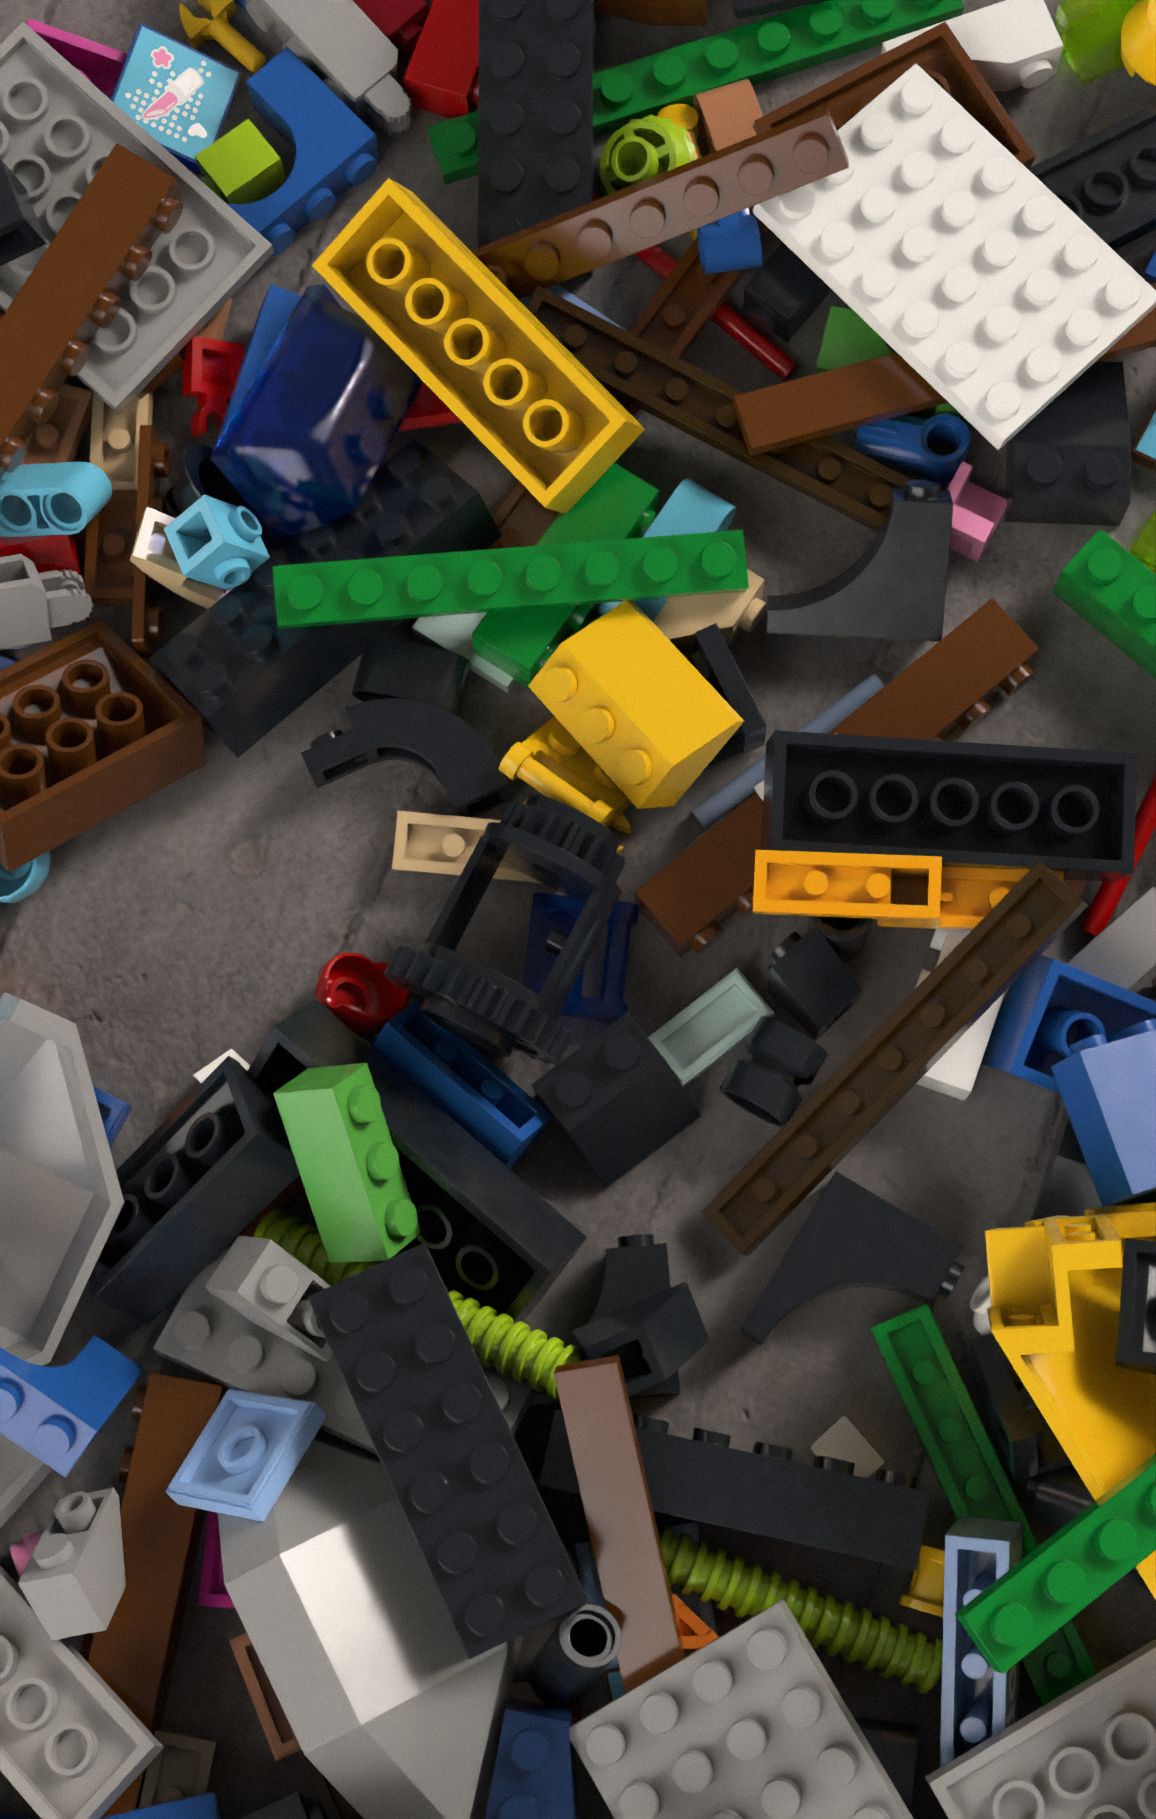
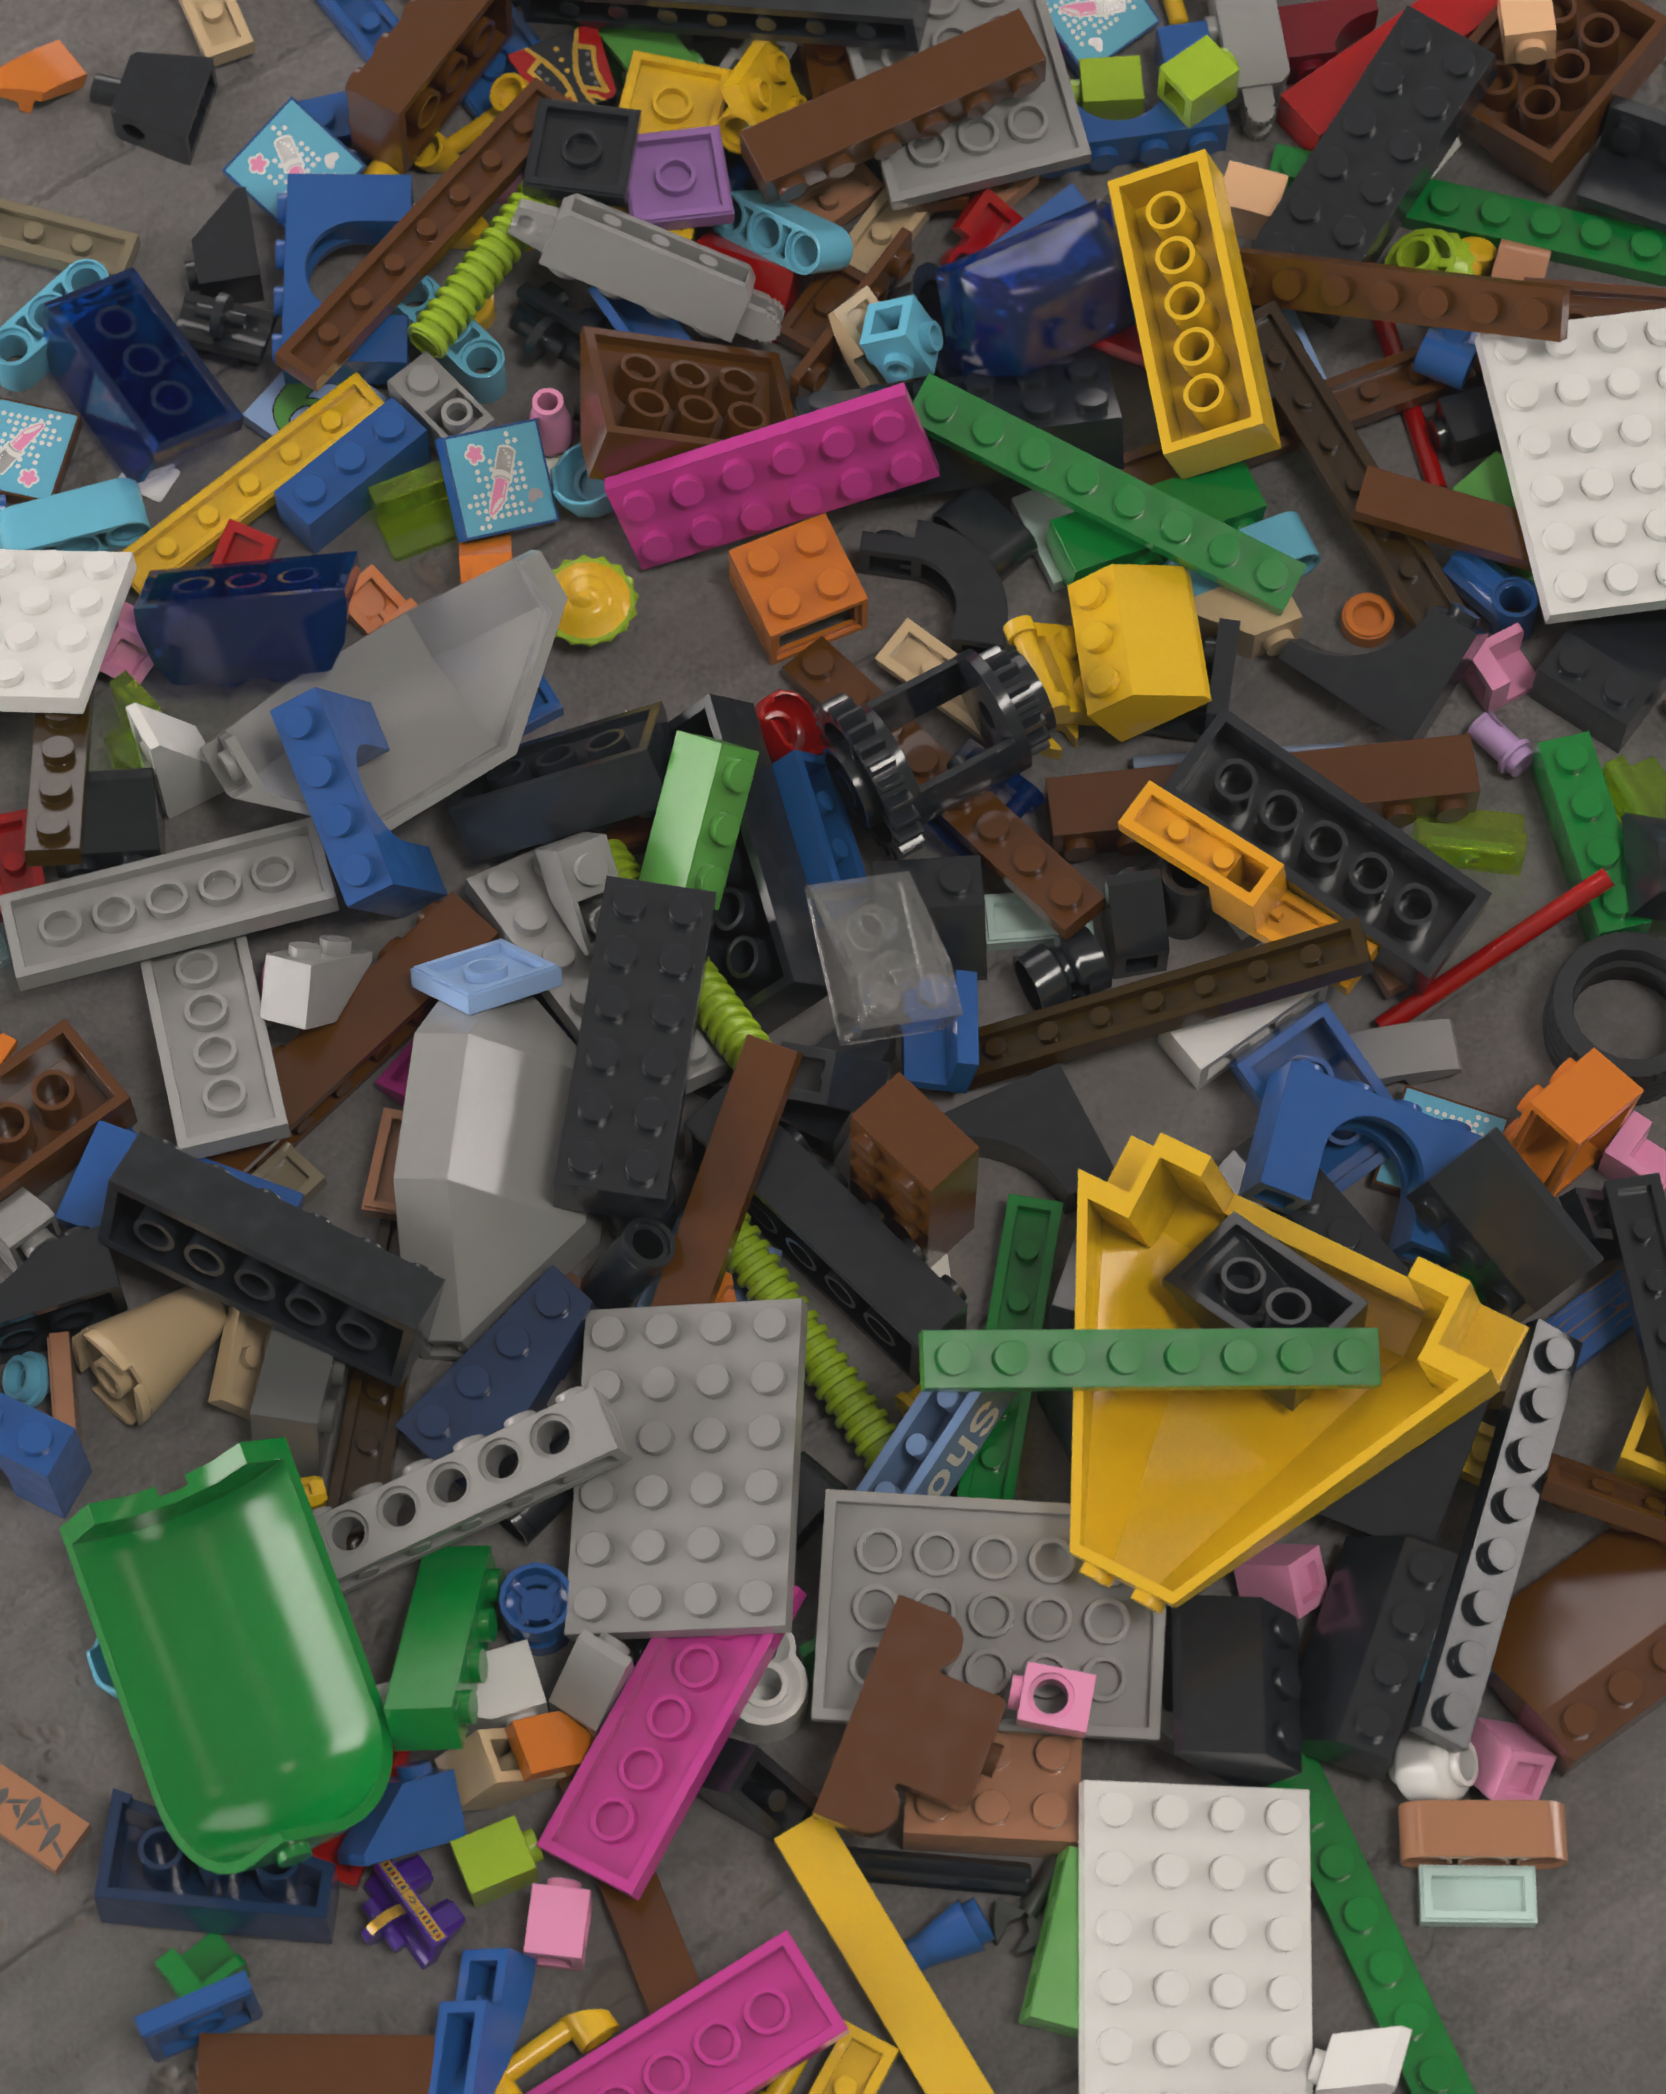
camera: 25 degrees right, 10 degrees down
(86, 982) = (598, 600): none -> yellow piece
(185, 758) = (772, 476): none -> dark pink plate
(273, 844) = (794, 582): none -> orange piece
(324, 111) = (1198, 81): none -> lime brick
(447, 191) = (1252, 196): none -> light nougat brick
(610, 979) = (980, 824): none -> reddish brown plate
(612, 1186) = (881, 959): none -> clear slope
(709, 1215) = (950, 1056): none -> blue panel
(793, 1393) = (914, 1167): none -> reddish brown brick
(813, 540) = (1367, 620): none -> orange tile
(1017, 585) = (1497, 740): none -> lavender pin
(1060, 691) = (1478, 842): none -> clear neon green panel

